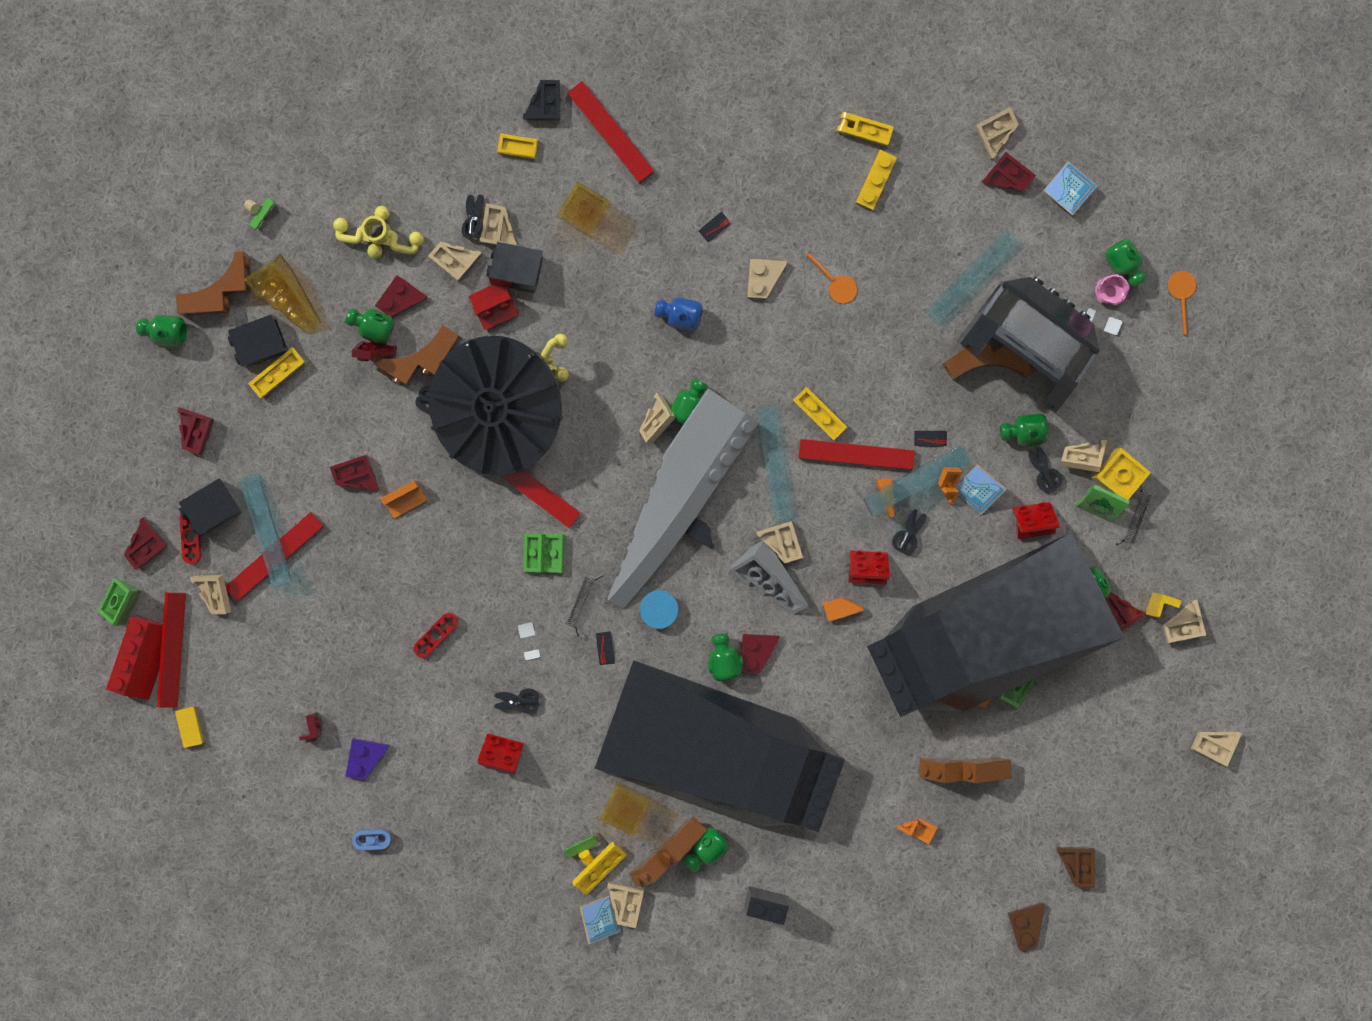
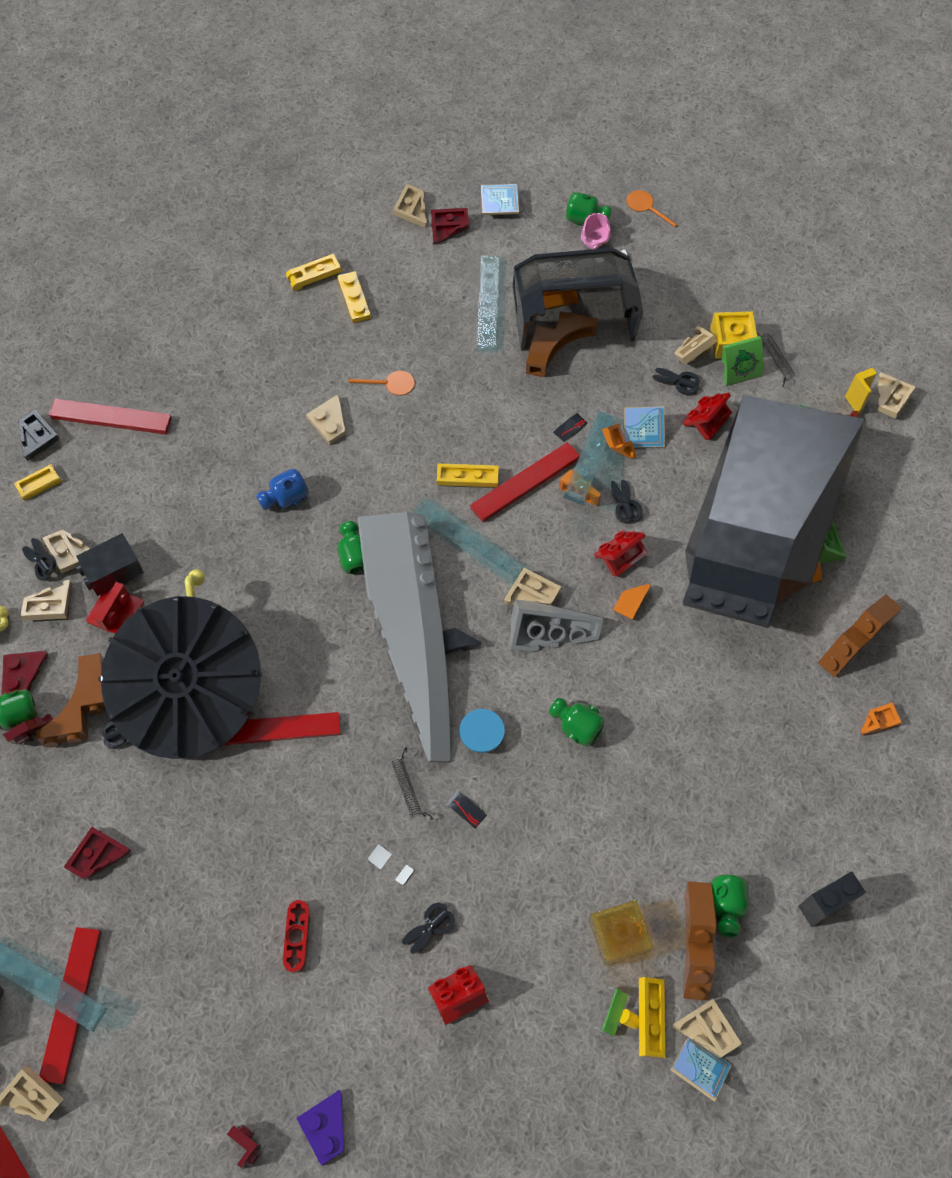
camera: 45 degrees left, 25 degrees down
(404, 499) = (161, 836): orange panel -> none
(544, 552) = (335, 774): bright green slope -> none
(584, 209) = (133, 478): clear yellow brick -> none
(656, 420) = (337, 583): tan wing -> none
(715, 226) = (256, 417): black sticker -> none
(718, 751) = (650, 809): black windscreen -> none
(756, 651) = (599, 693): dark red wing -> none
(1027, 430) = (635, 360): green piece -> none

